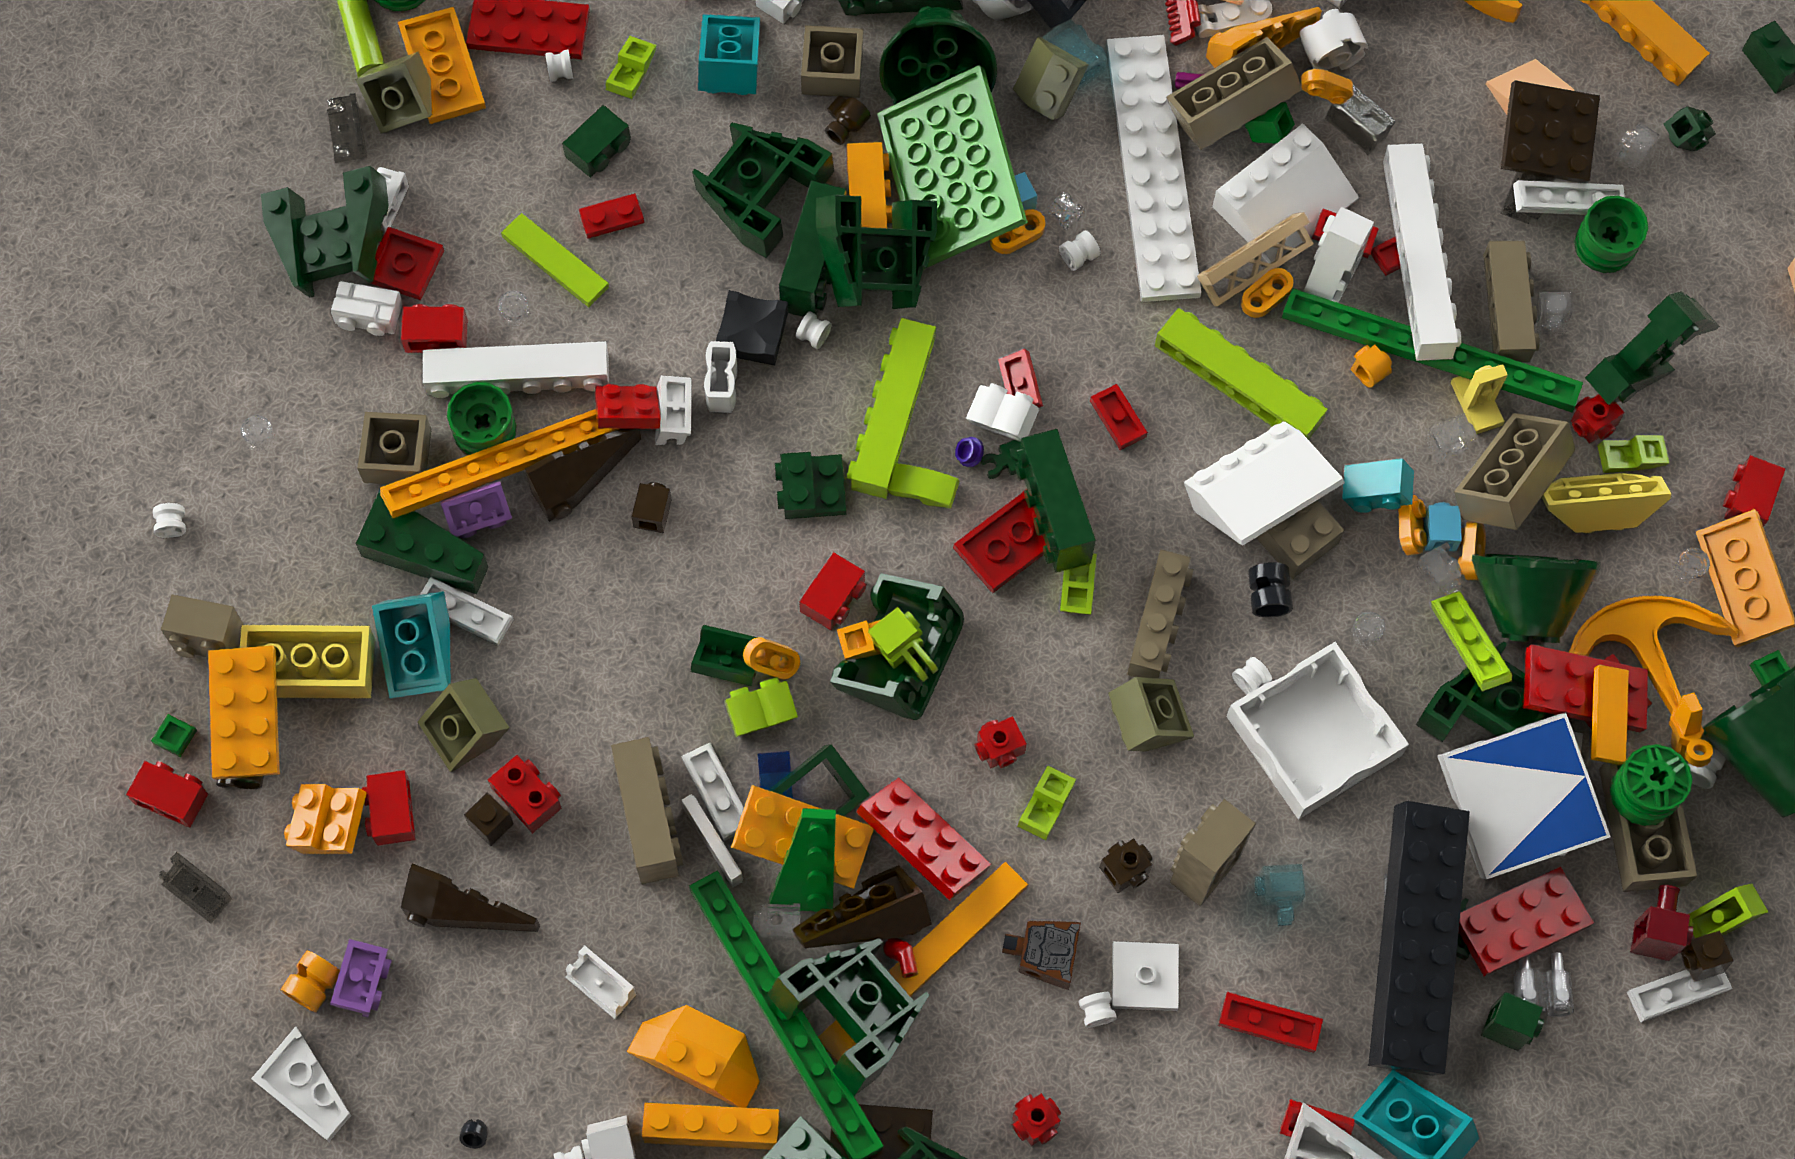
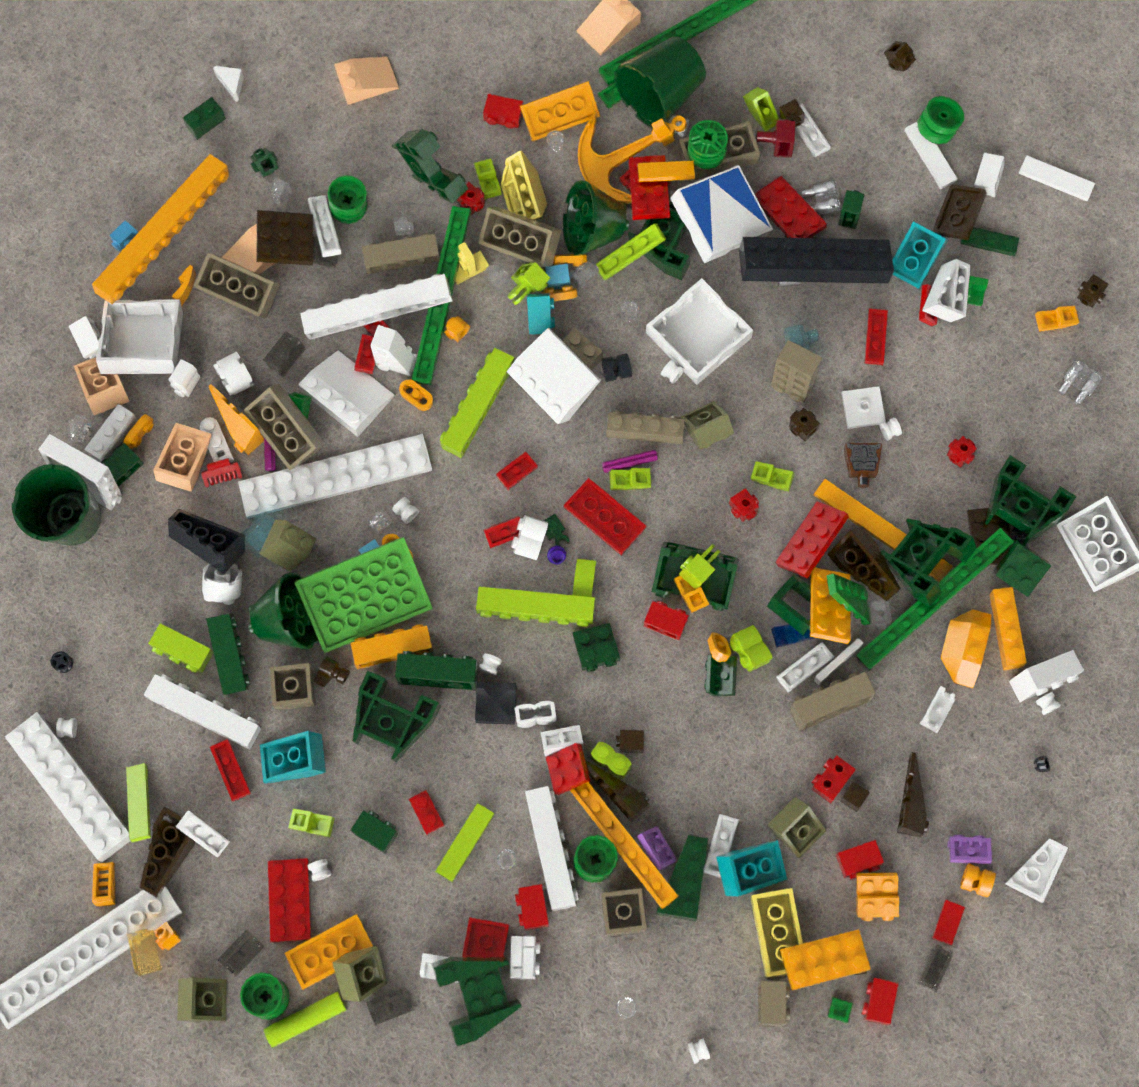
camera: 95 degrees left, 5 degrees up
(261, 926) = (948, 922): none -> red tile
(622, 476) = (606, 757): none -> lime brick
(875, 257) = (443, 625): dark green wedge -> none
(903, 953) = (883, 539): red arm -> none
(1055, 501) = (589, 492): dark green brick -> none
(1108, 587) = (629, 461): none -> magenta axle
(1253, 250) = (394, 403): tan fence -> none
(1327, 85) = (276, 369): light orange plate -> none
(1438, 475) = (528, 279): none -> lime brick
(1479, 63) = (236, 285): none -> dark tan brick

